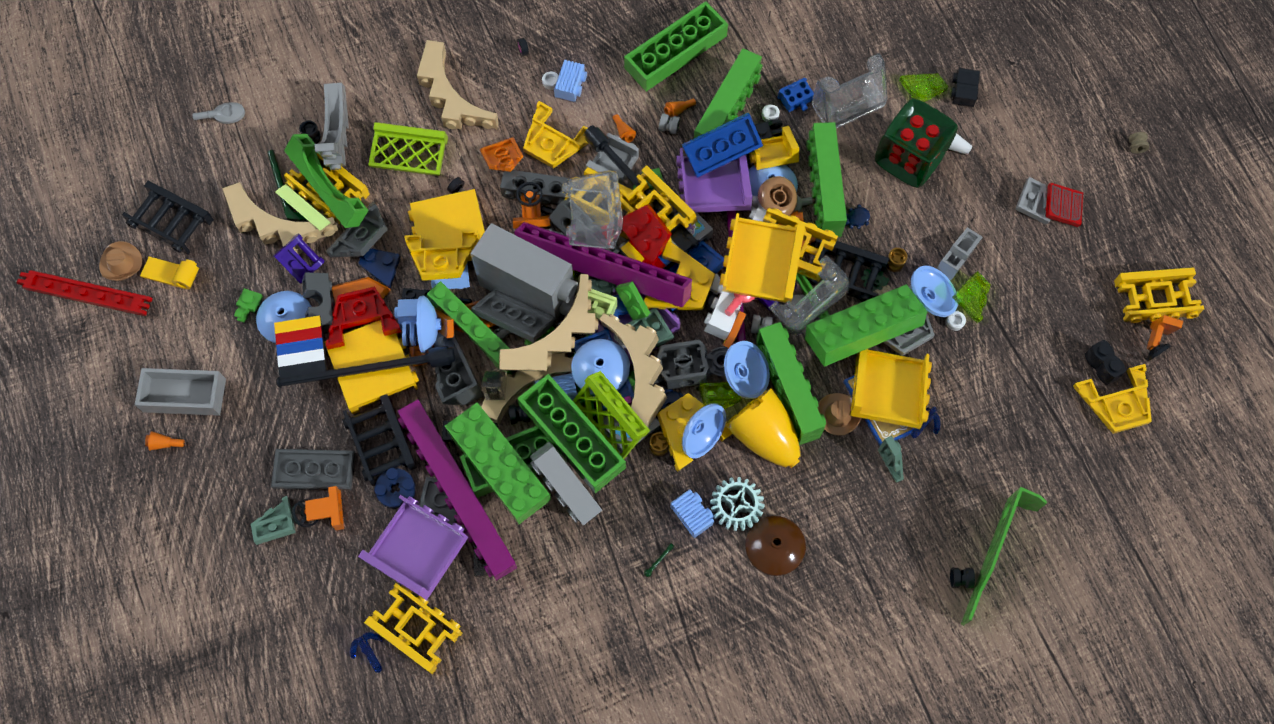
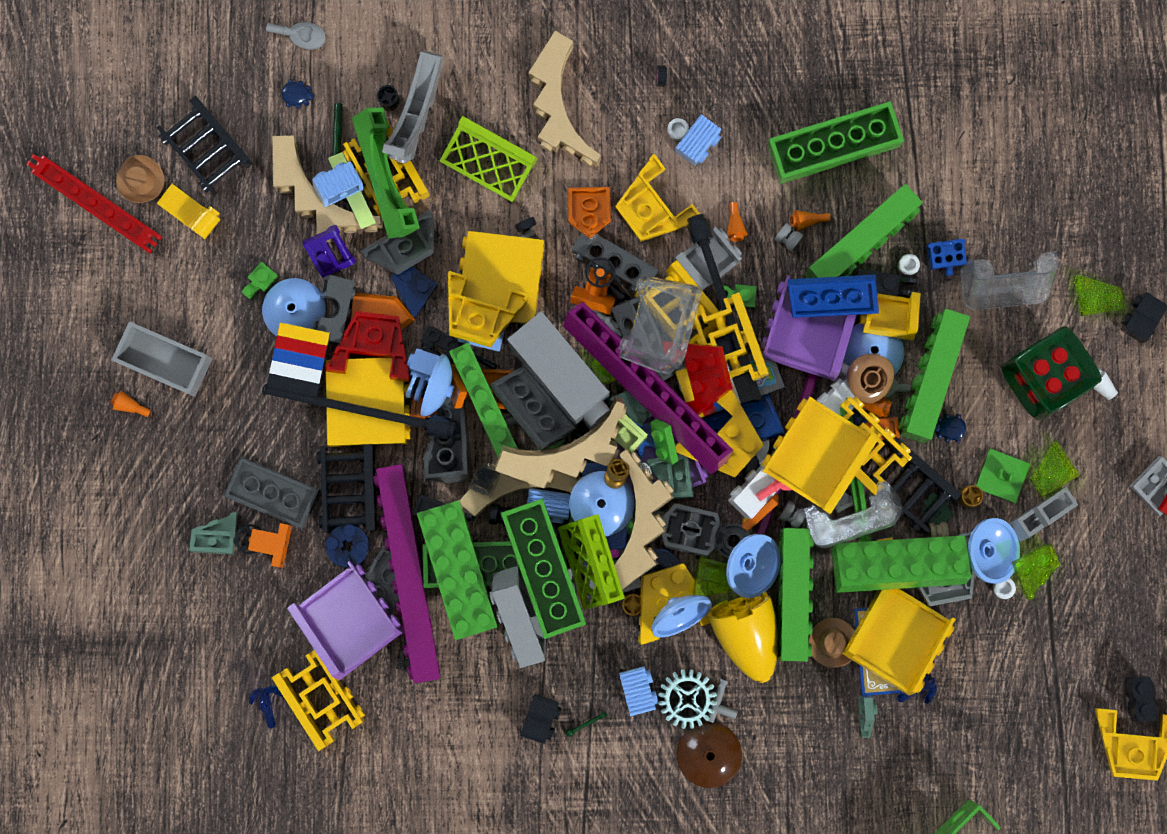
camera: 25 degrees right, 15 degrees up
(233, 156) = (296, 94): none -> dark blue piece
(288, 202) = (337, 183): none -> light blue brick
(603, 334) = (616, 473): none -> pearl gold wheel
(617, 569) = (540, 718): none -> black brick
(768, 502) = (720, 708): none -> light grey piece
(914, 237) = (1002, 475): none -> bright green piece
(952, 219) = (1053, 471): none -> clear neon green wing

